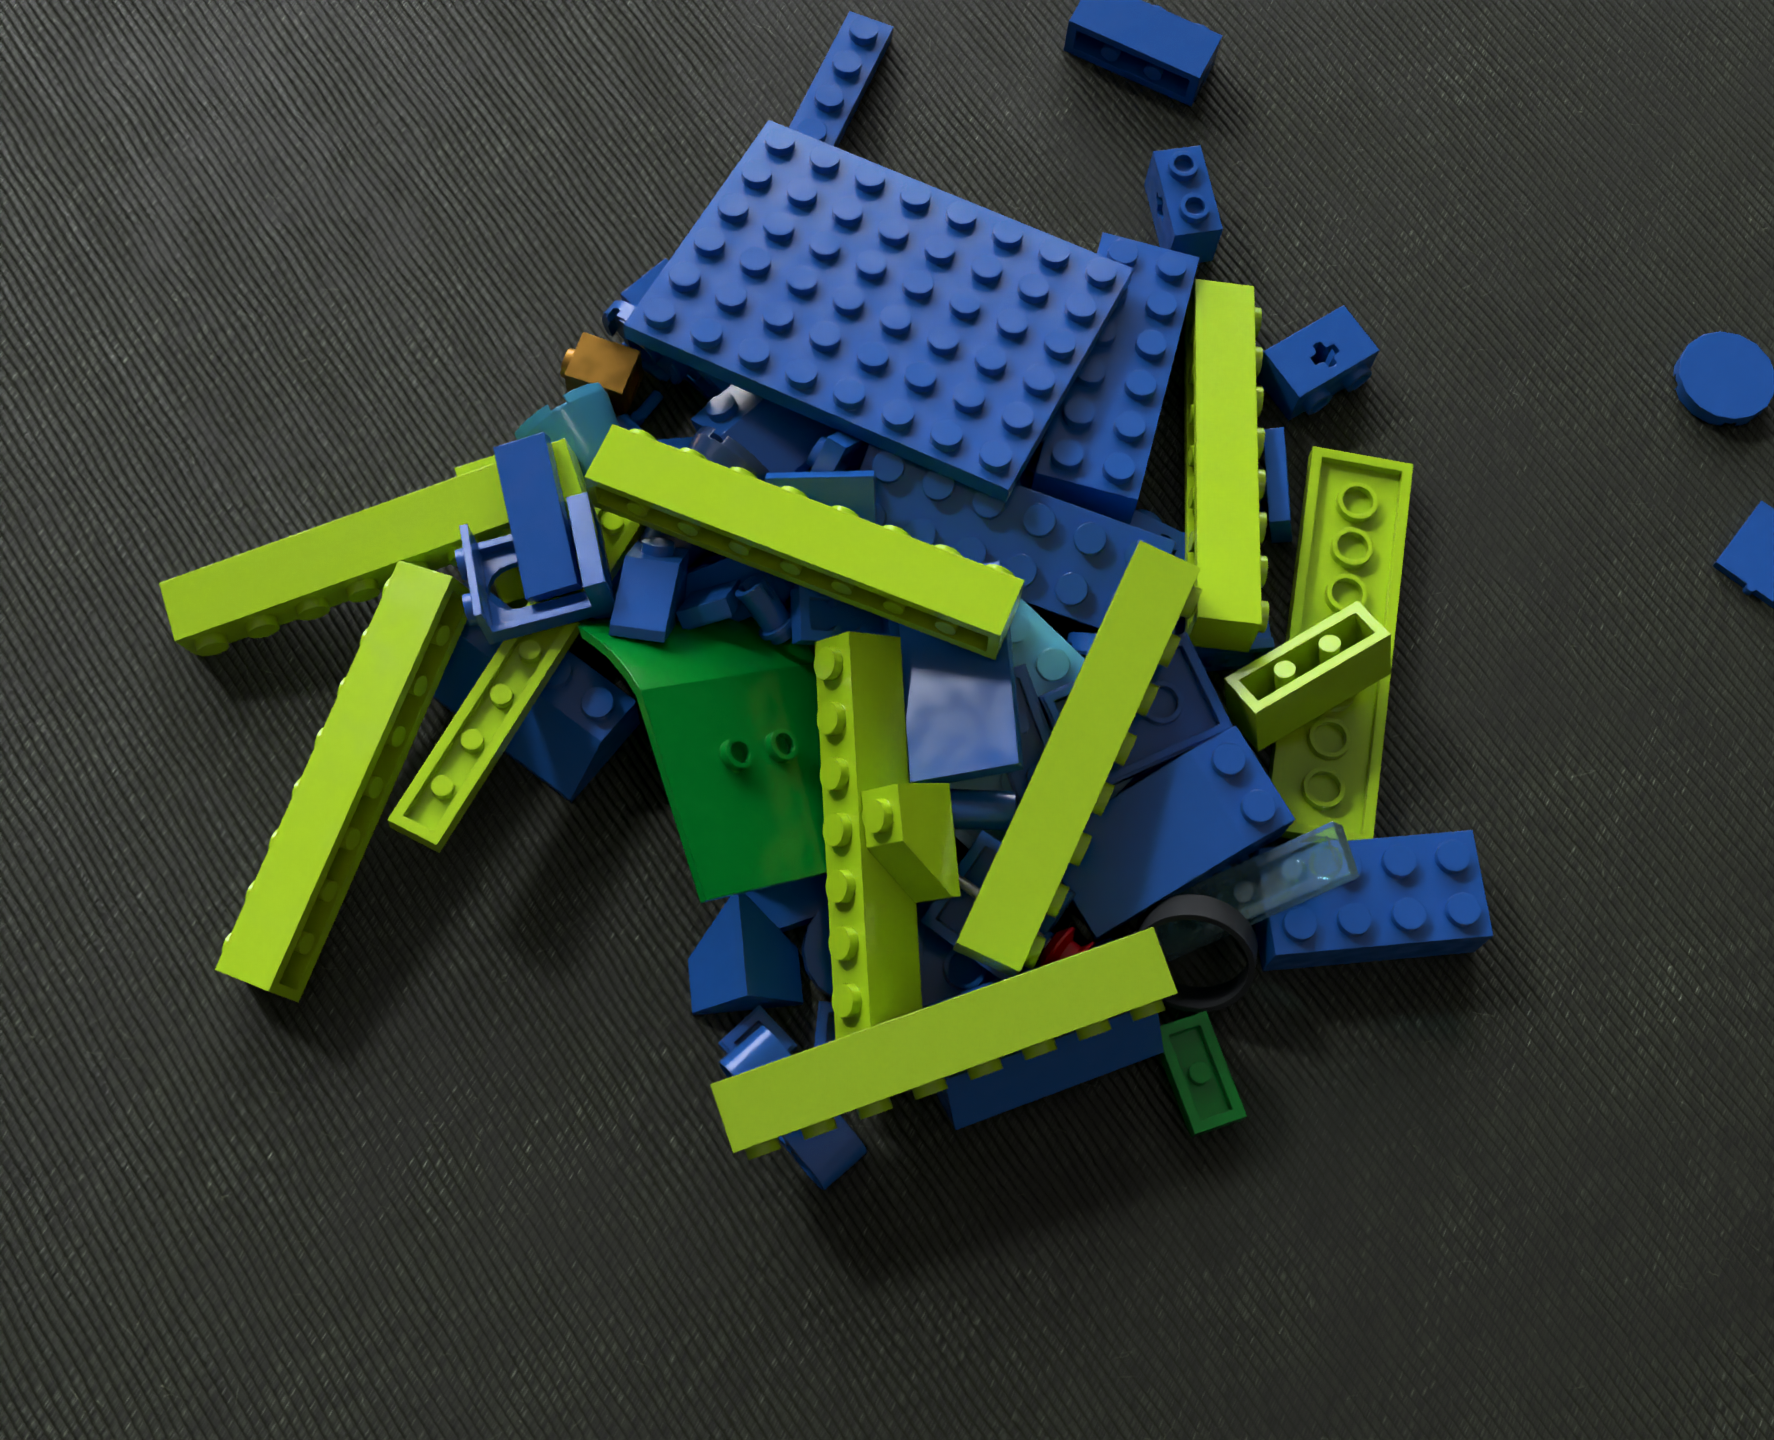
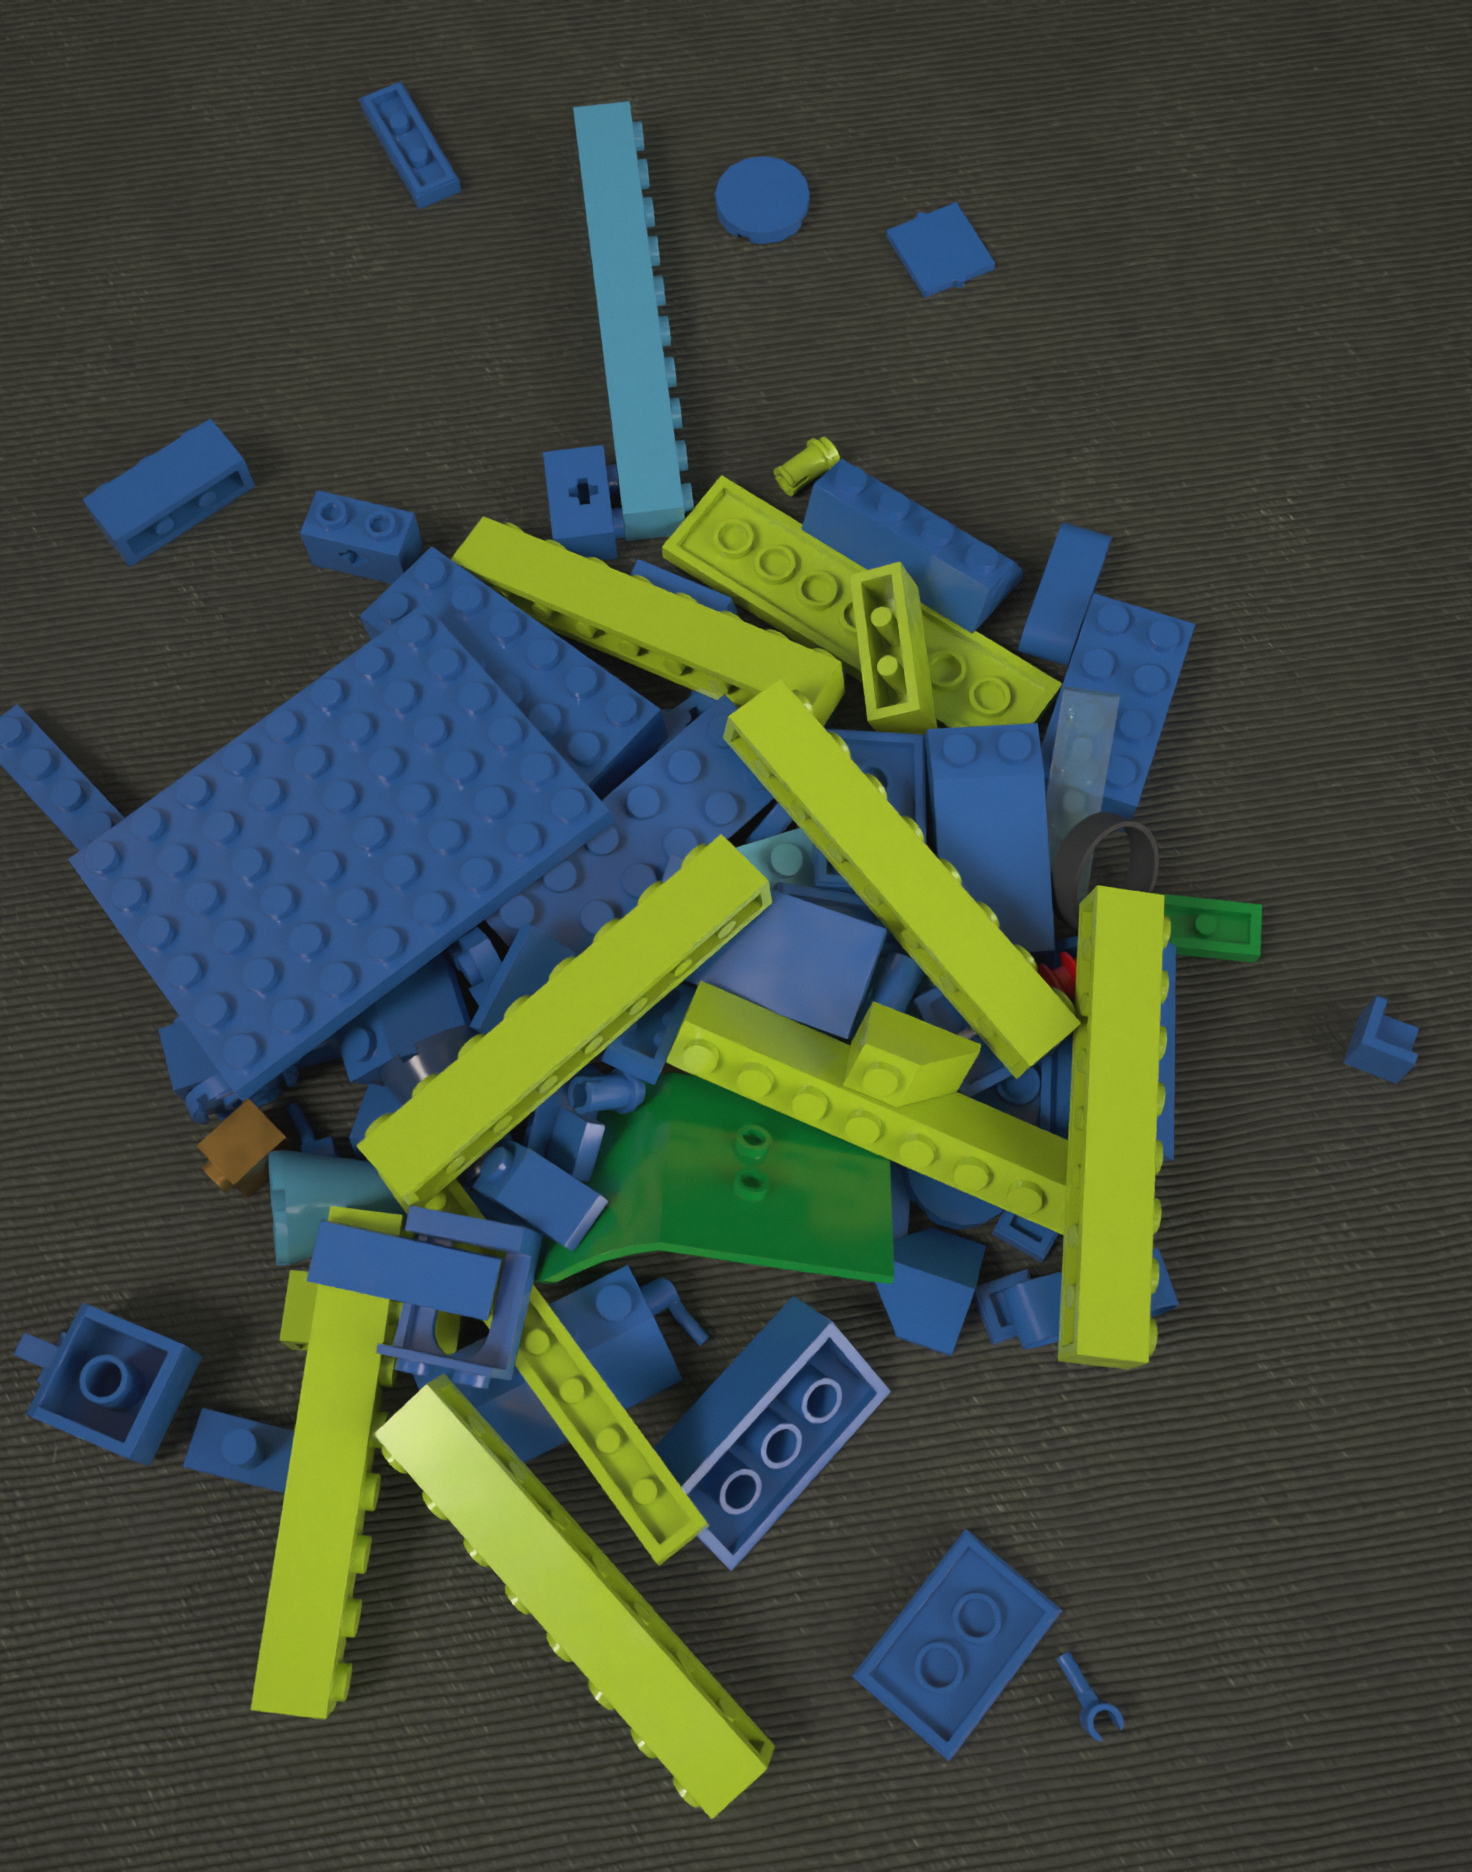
camera: 55 degrees left, 0 degrees up
(360, 478) = (240, 1450): none -> blue tile
(367, 366) = (110, 1382): none -> blue hinge
(445, 1119) = (956, 1644): none -> blue tile
(445, 1249) = (1087, 1697): none -> blue hand
(553, 881) = (769, 1427): none -> blue slope
(634, 752) = (662, 1295): none -> blue hand
(1169, 1284) = (1381, 1043): none -> blue panel
(1436, 653) = (885, 527): none -> blue slope
(1469, 534) = (806, 465): none -> lime pin
(1493, 808) = (1064, 594): none -> blue beam
(1526, 319) = (630, 324): none -> dark azure brick
(1594, 67) = (410, 145): none -> blue tile

